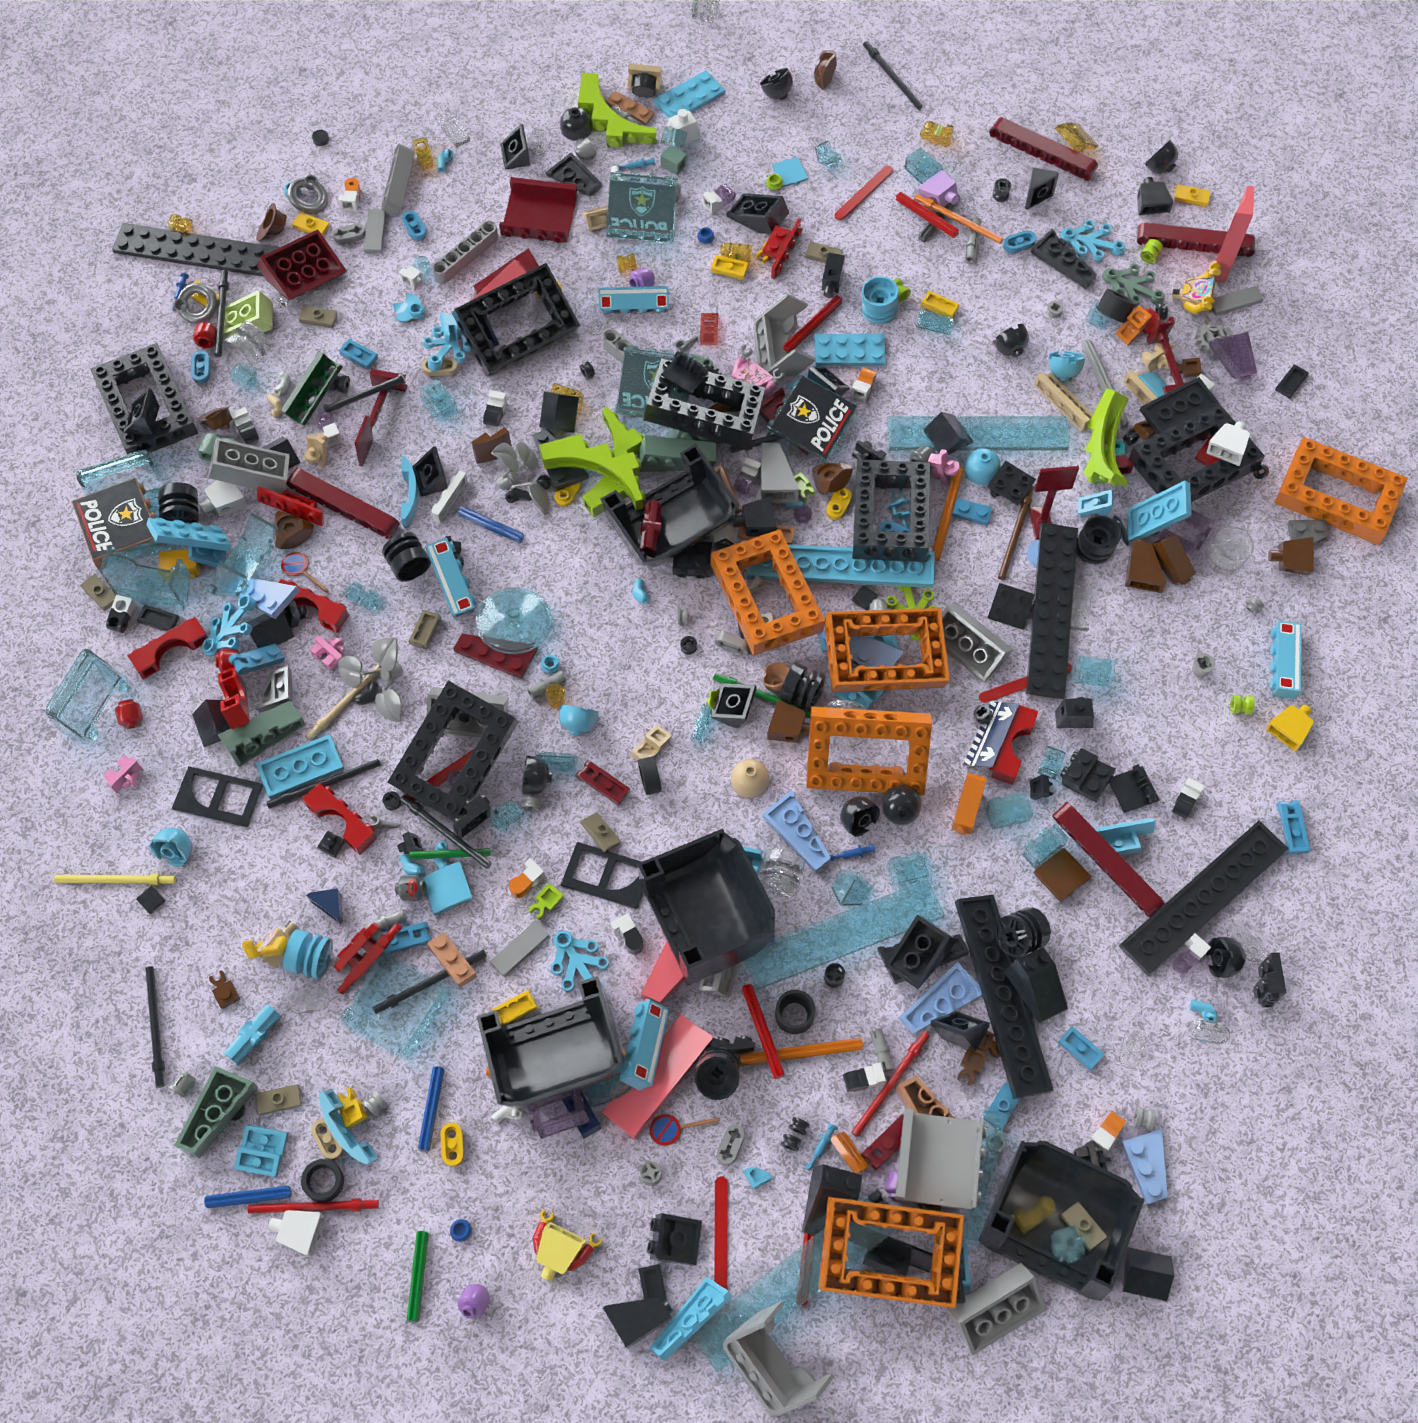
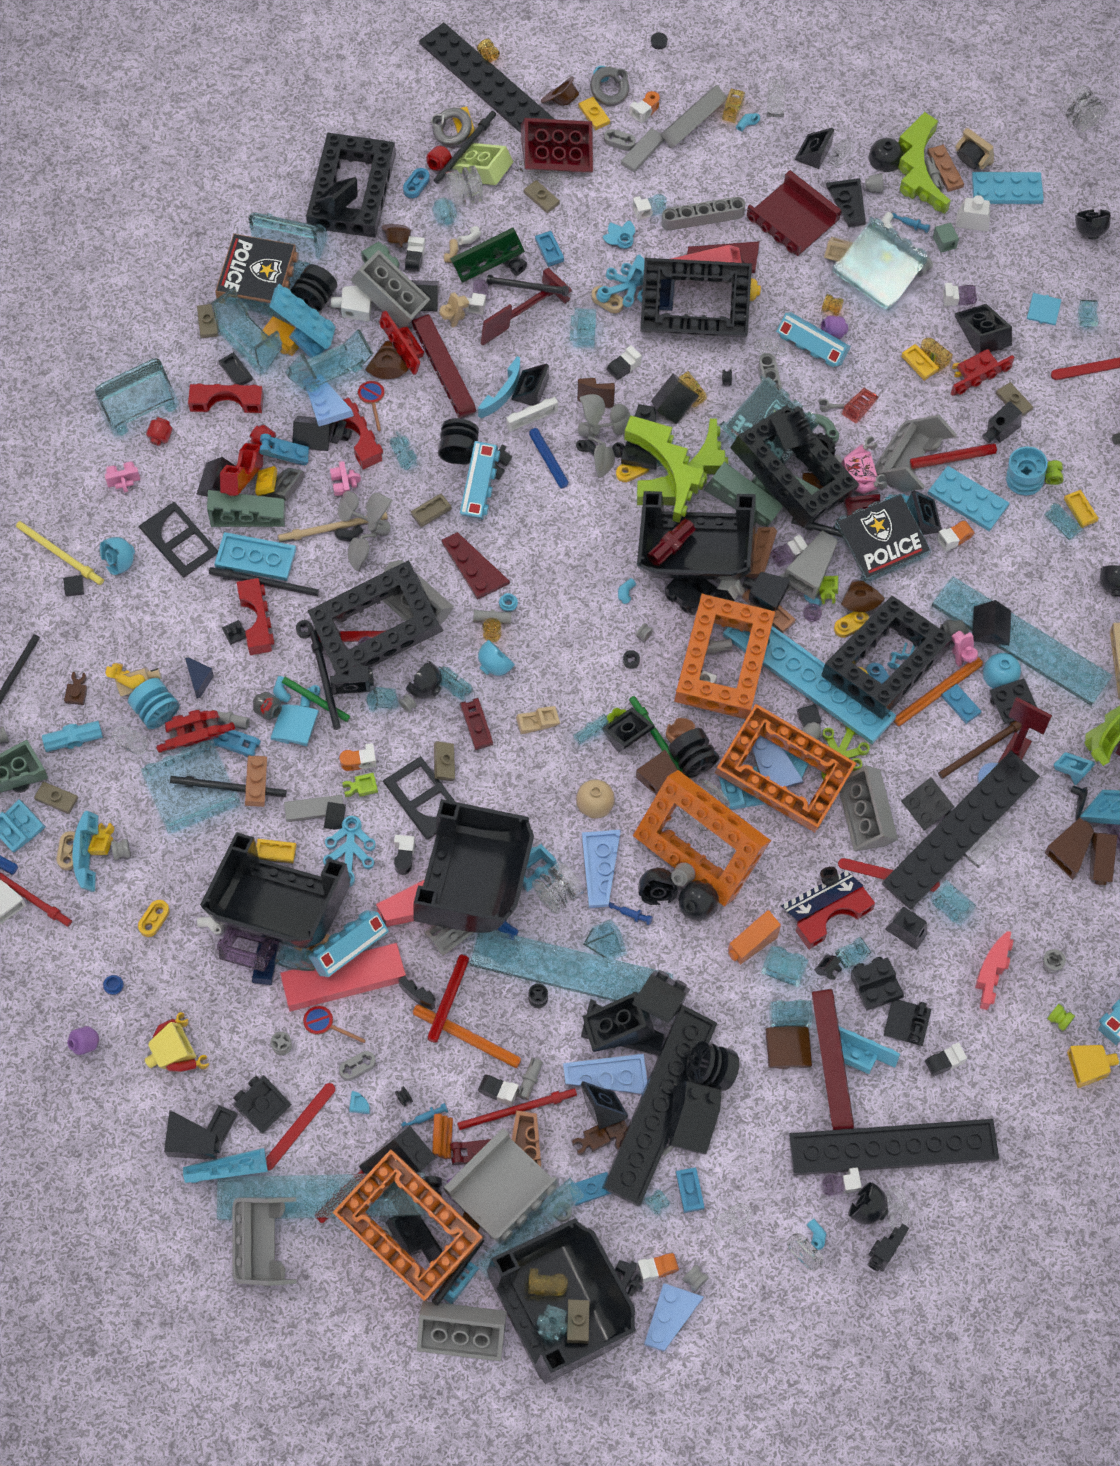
camera: 35 degrees right, 0 degrees up
(120, 613) = (209, 348): leg -> none
(181, 285) = (452, 103): blue piece -> none
(214, 643) = (263, 417): medium azure plant -> none
(261, 695) = (266, 481): none -> yellow plate
(310, 1169) = (48, 891): black tyre -> none
(379, 823) = (282, 640): light grey hand -> none
(410, 844) = (293, 671): black tile -> none
(414, 228) = (678, 165): dark azure plate -> none
(417, 1276) = (58, 995): green axle -> none
(431, 1108) = (155, 884): blue axle -> none
(514, 620) = (506, 548): clear light blue dish -> none
(543, 943) = (334, 815): none -> black piece
(649, 775) = (514, 741): black tyre -> none
(673, 137) = (958, 217): clear light blue panel -> none
(705, 235) = (921, 321): blue plate -> none
(712, 1084) = (377, 1008): black wheel -> none
(732, 643) = (666, 680): light grey beam -> none
(774, 182) = (1021, 310): lime plate -> none
(799, 1126) = (420, 1089): black bush -> none
(801, 998) = (484, 987): black piece -> none
(865, 451) = (907, 594): black hips -> none
(874, 791) = (683, 874): none -> light grey hat
(909, 869) = (664, 956): clear light blue brick -> none
(941, 903) = (662, 996): none -> black slope
(1064, 1077) = (657, 1201): none -> clear light blue wheel
(1098, 539) = (1057, 794): black wheel -> none
(1148, 1274) = (600, 1394): black slope -> none
(1160, 699) = (993, 965): none -> coral slope
(1293, 827) = (1019, 1146): dark azure plate -> none

